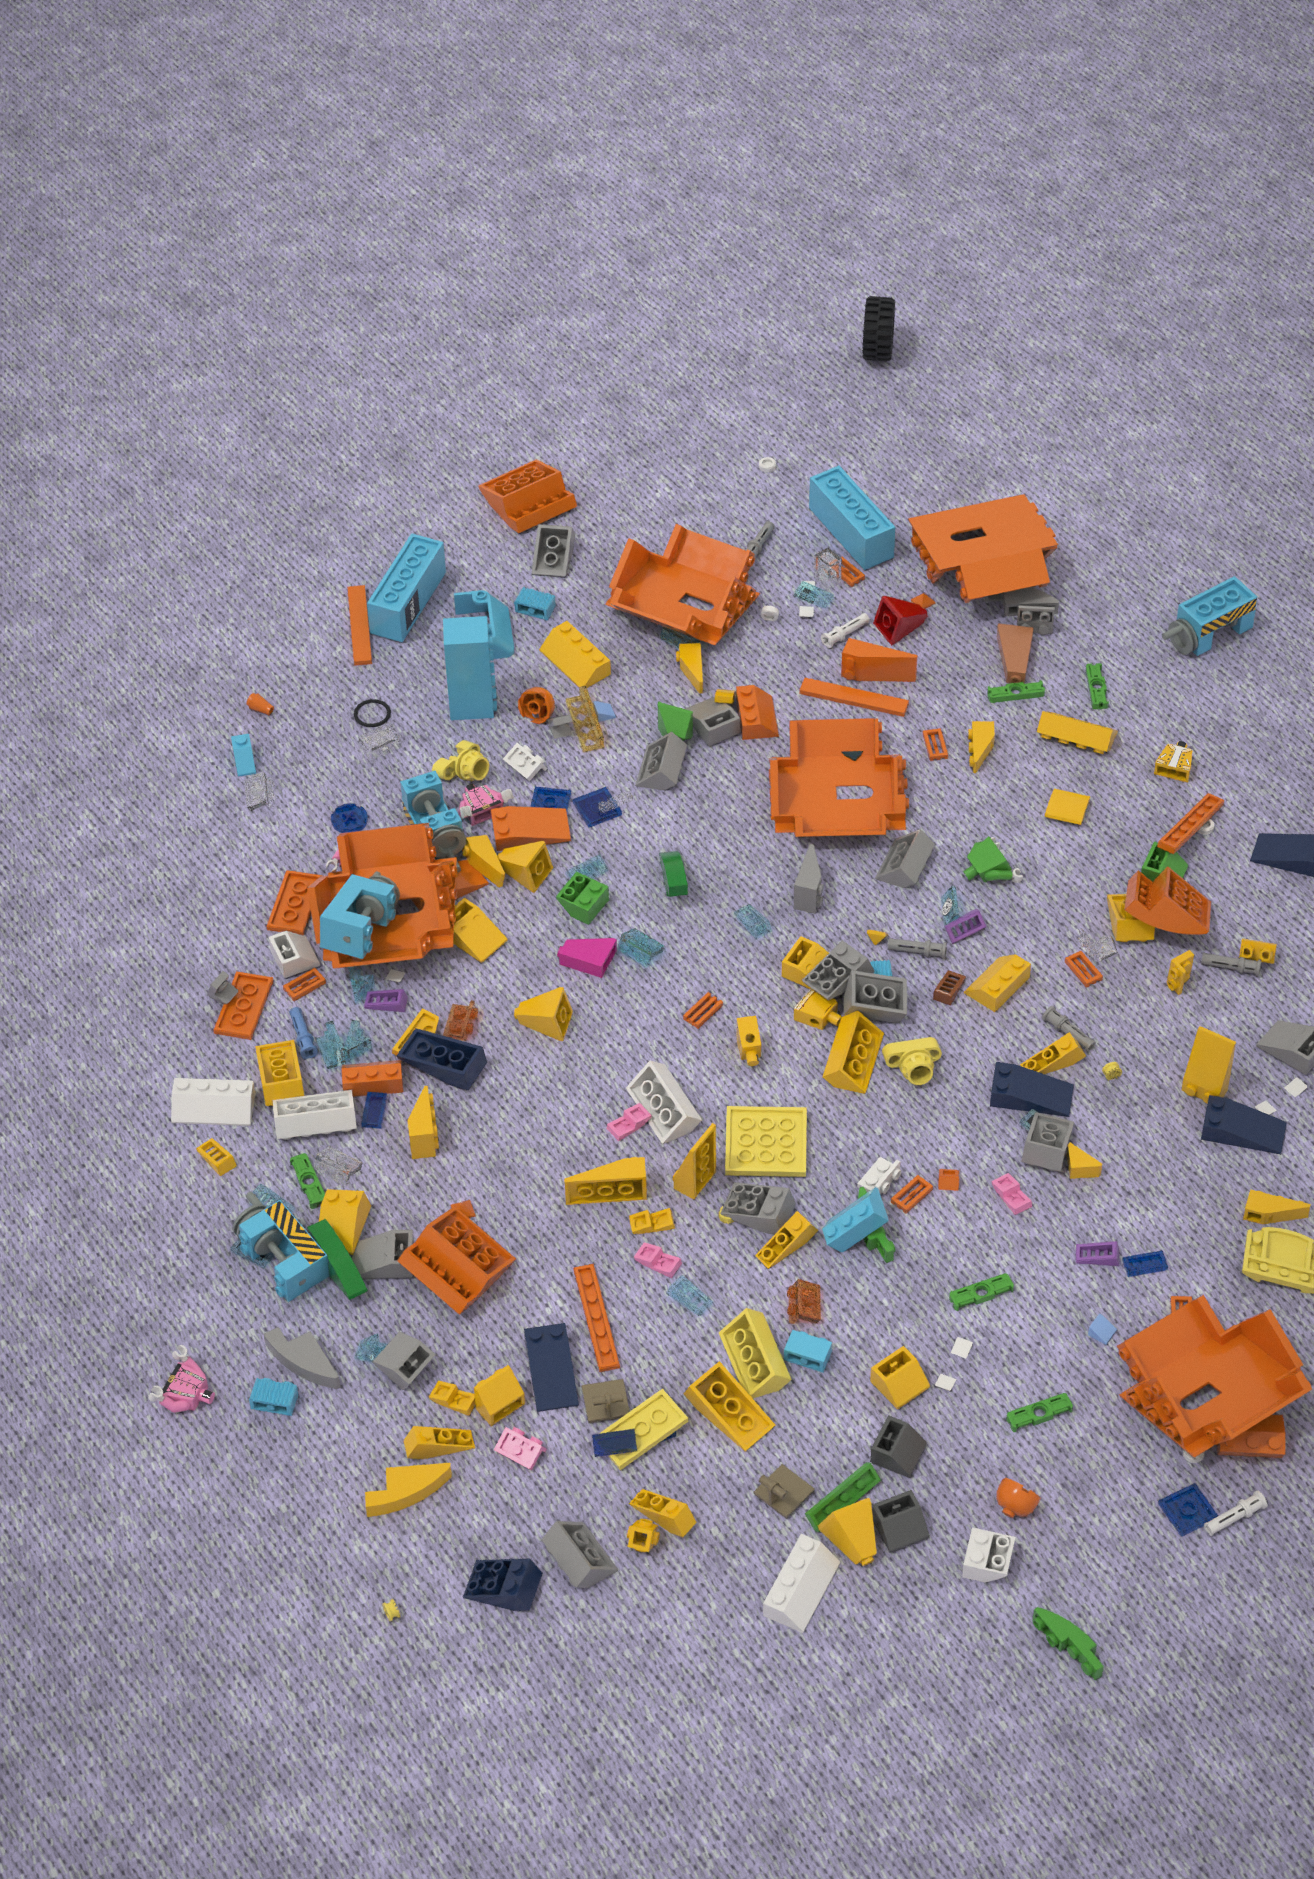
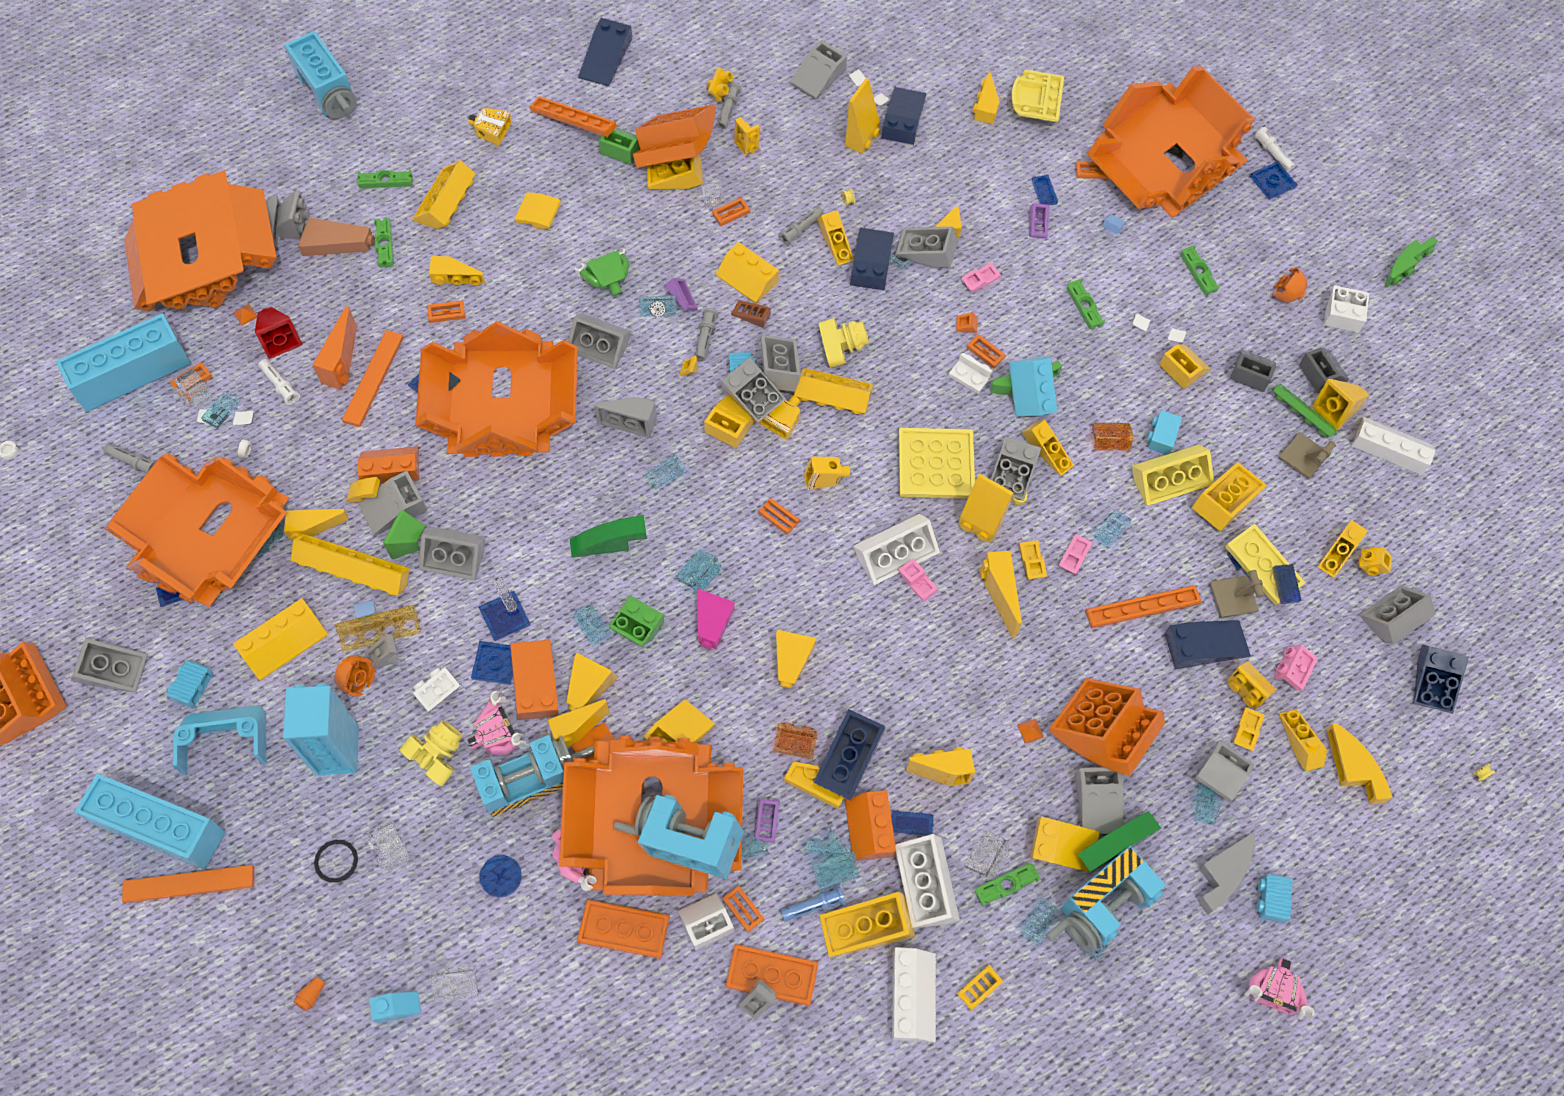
camera: 95 degrees left, 15 degrees up
(647, 693) = (349, 564): none -> yellow brick

